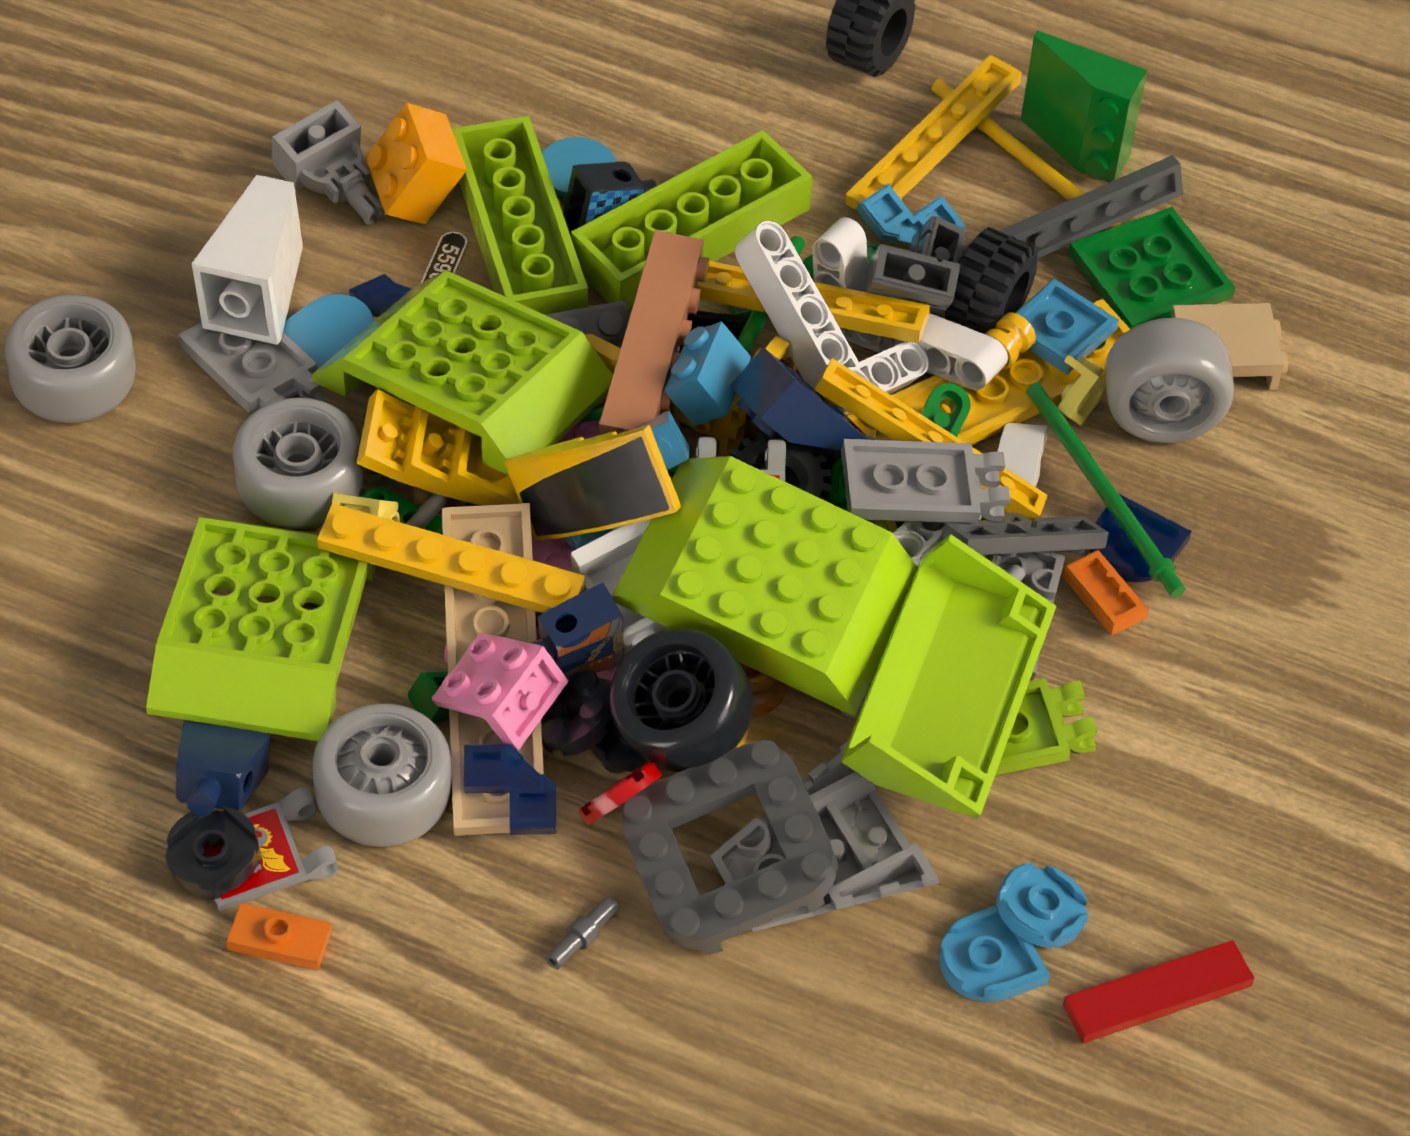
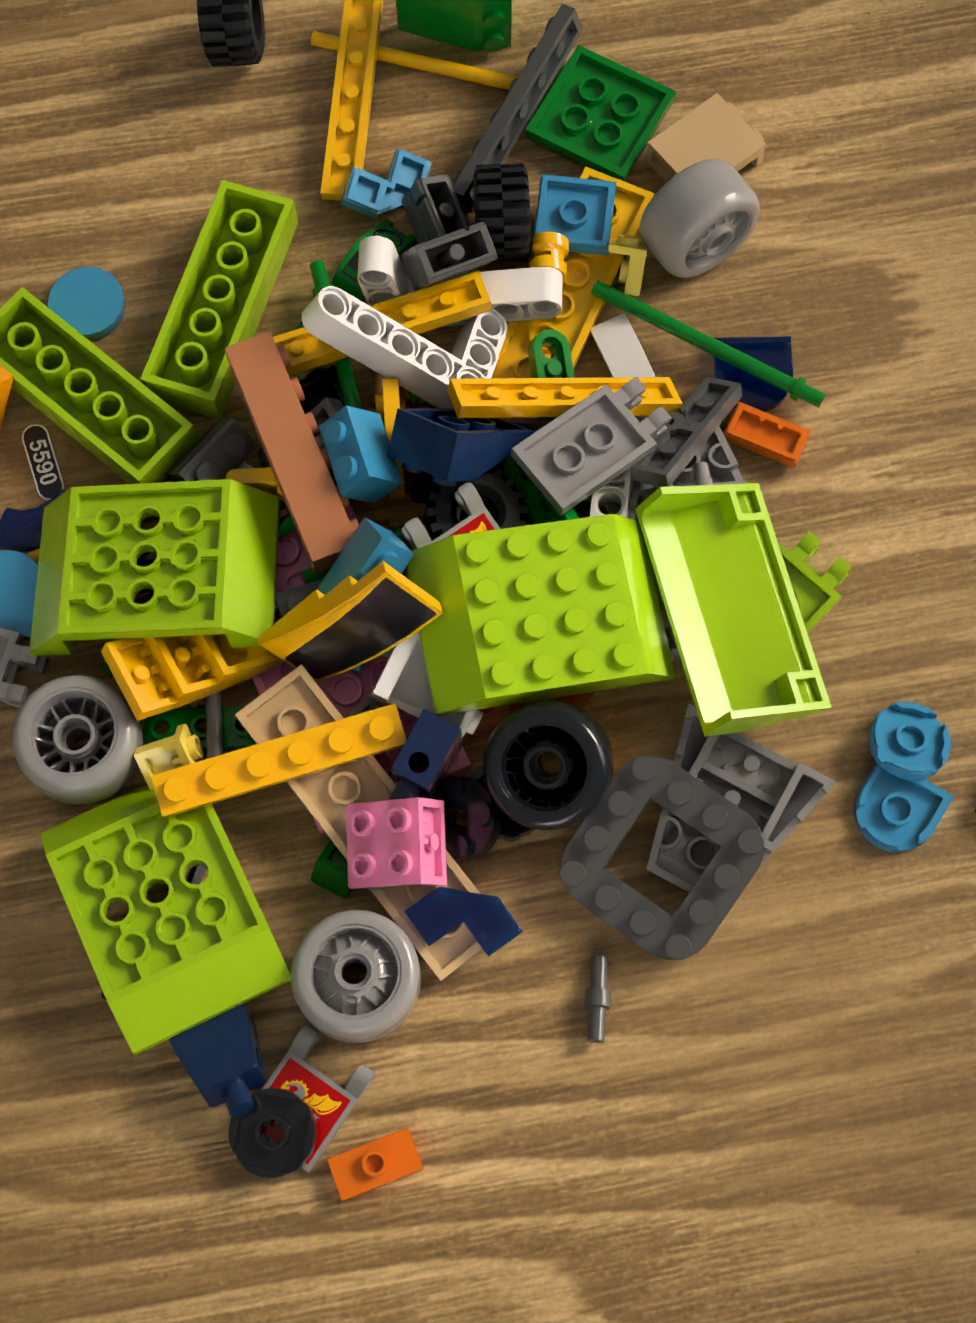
camera: 30 degrees left, 20 degrees up
(599, 189) = (135, 323): black torso -> none
(619, 792) = (549, 868): red tile -> none

